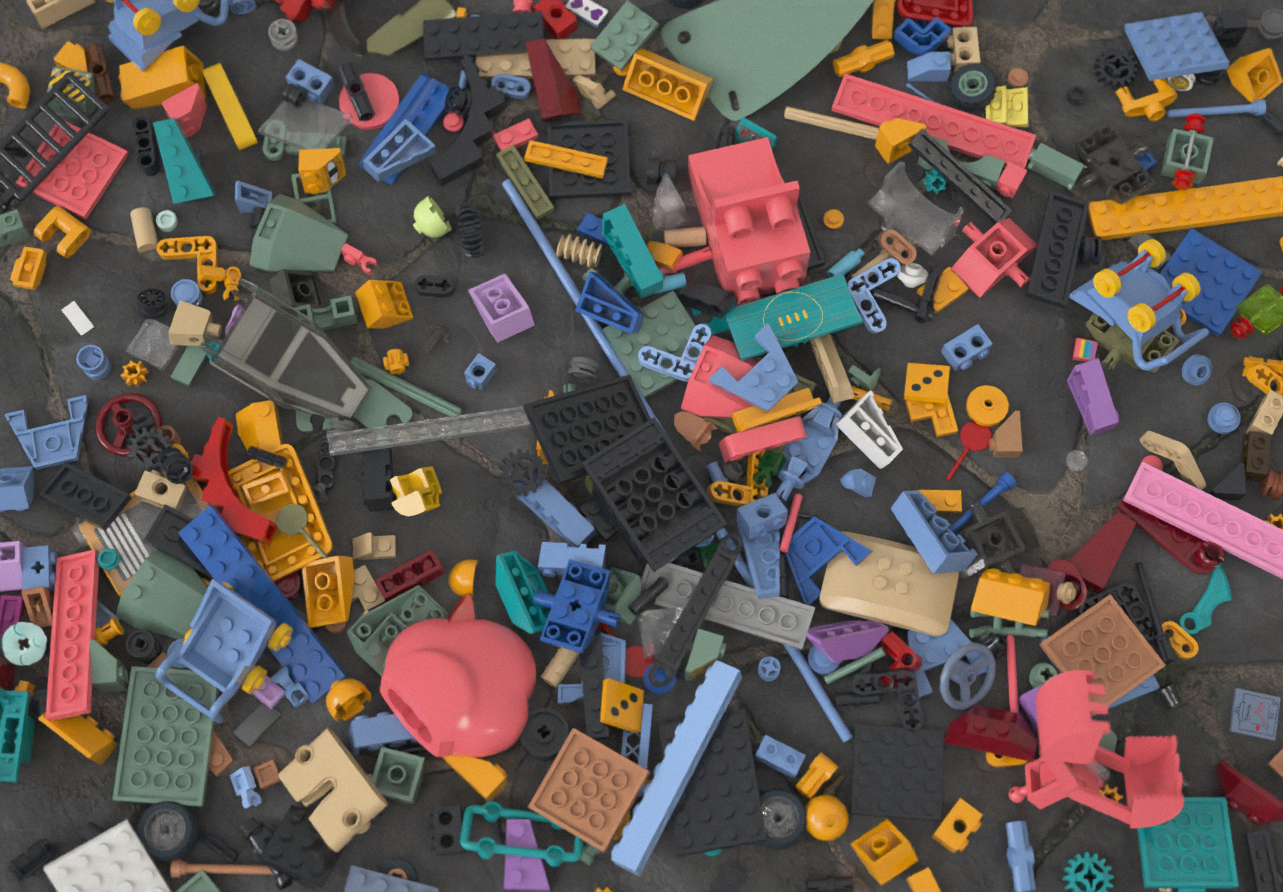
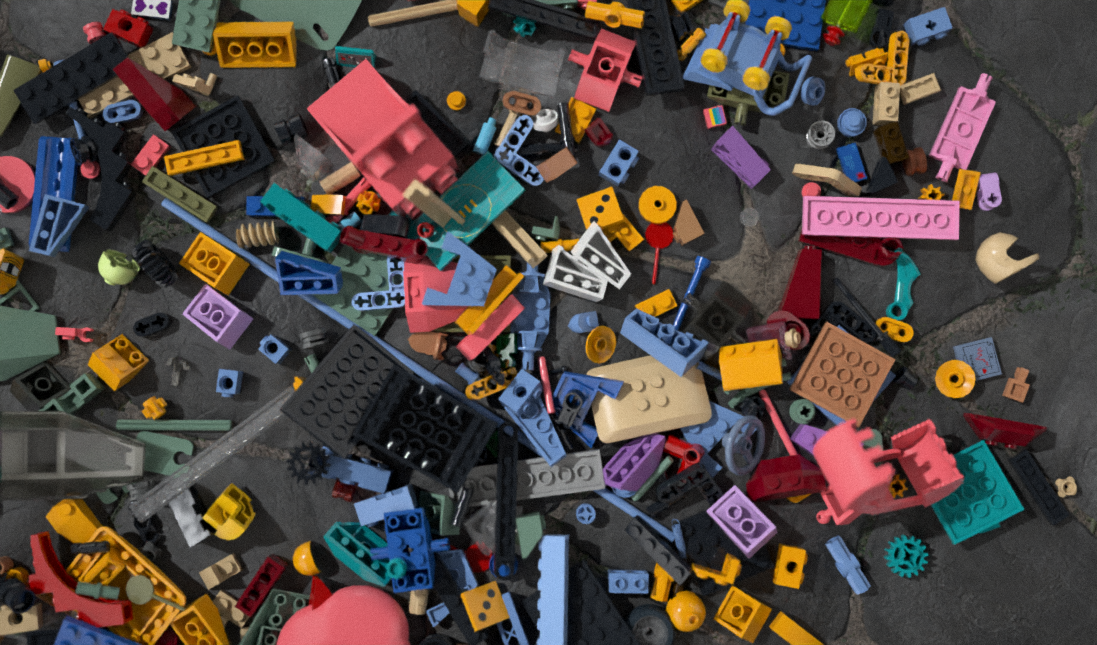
camera: 30 degrees left, 15 degrees up
(253, 499) = (98, 590): none -> sand green pin
(524, 258) = (214, 263): none -> light orange slope
(537, 527) = (343, 490): none -> clear red wheel
(542, 370) = (282, 352): none -> medium blue brick
(556, 614) = (396, 568): none -> teal plate
(679, 301) = (369, 242): none -> dark red plate
(701, 270) = (368, 202): none -> light orange gear
(748, 313) = (425, 234): none -> red hinge
(748, 475) = (493, 365): none -> black piece
(766, 289) = (430, 204): none -> tan fence
(803, 556) = (570, 410): none -> black piece
(828, 738) = (659, 550): none -> black plate
(853, 742) = (679, 540): none -> medium blue piece
(870, 514) = (600, 344): none -> light orange dish
(879, 792) = (730, 569): none -> light orange bracket
(904, 317) = (556, 165): none -> nougat slope
(906, 419) = (600, 256): none -> white wedge
(929, 752) = (742, 521): none -> lavender slope
(960, 312) = (599, 133): none -> dark red plate
(965, 588) = (709, 370): none -> medium blue piece
(1037, 213) = (615, 14): none -> light orange piece
(1090, 270) = (690, 43): none -> light orange axle
(1193, 412) = (823, 128): none -> light grey wheel
(1207, 457) = (851, 162): none -> blue tile
(1226, 710) = (965, 381): none -> light orange dish

